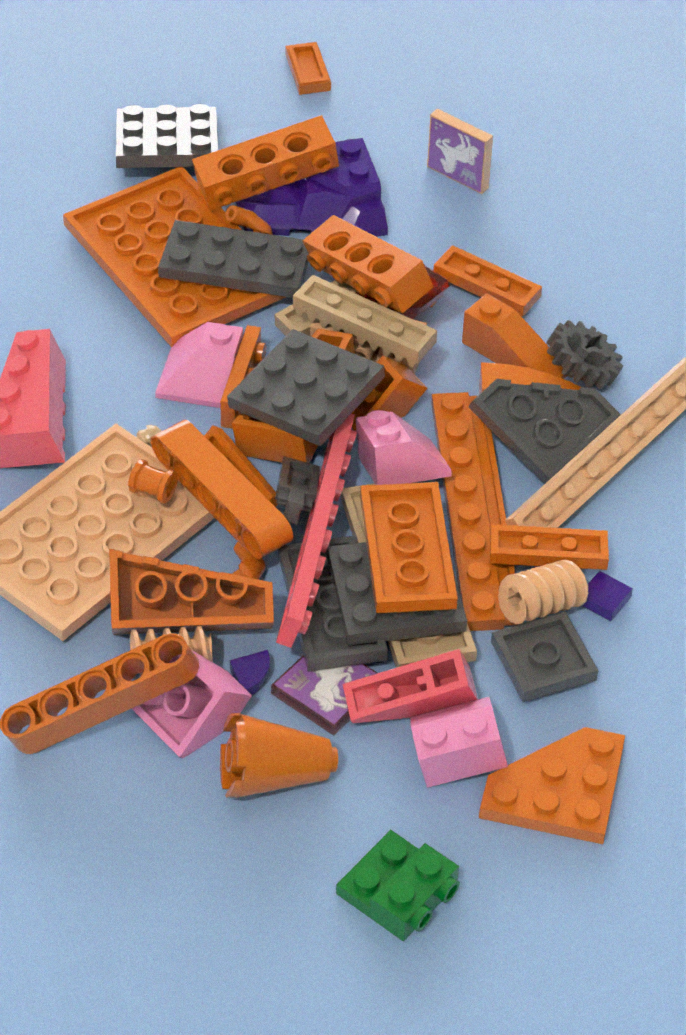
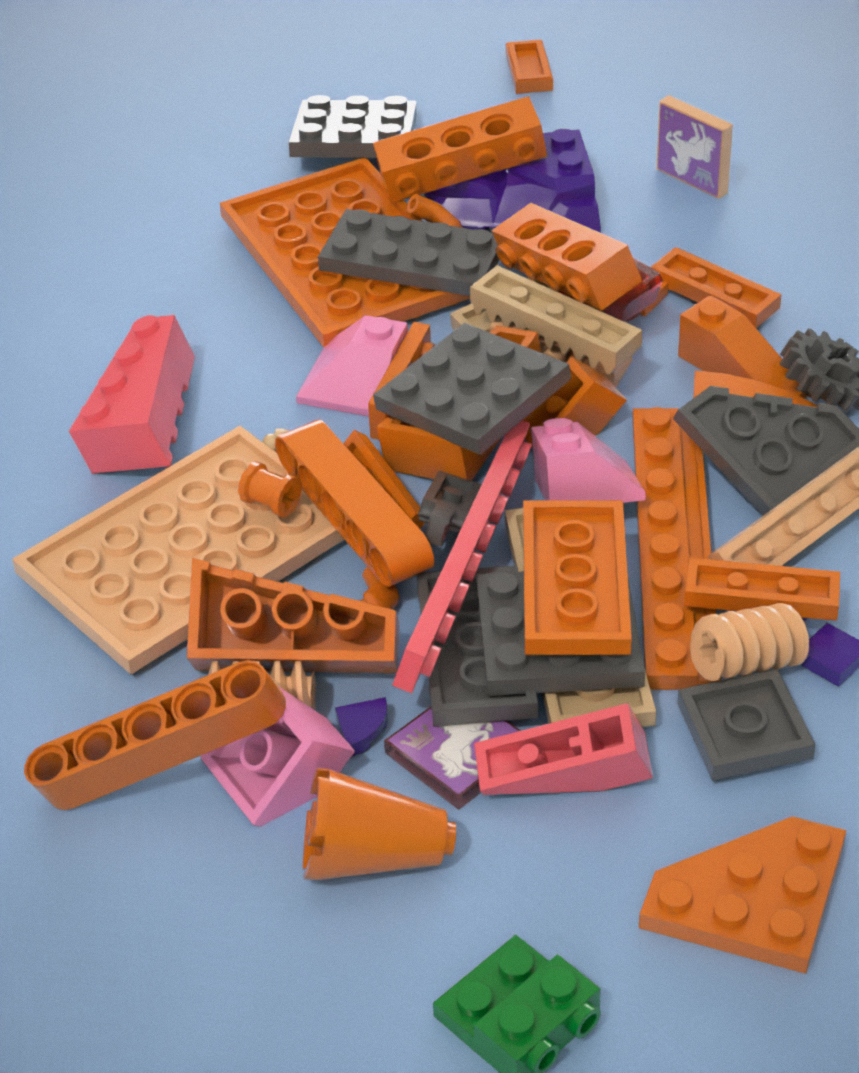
camera: 10 degrees right, 5 degrees down
(458, 742) = (618, 826): bright pink slope -> none

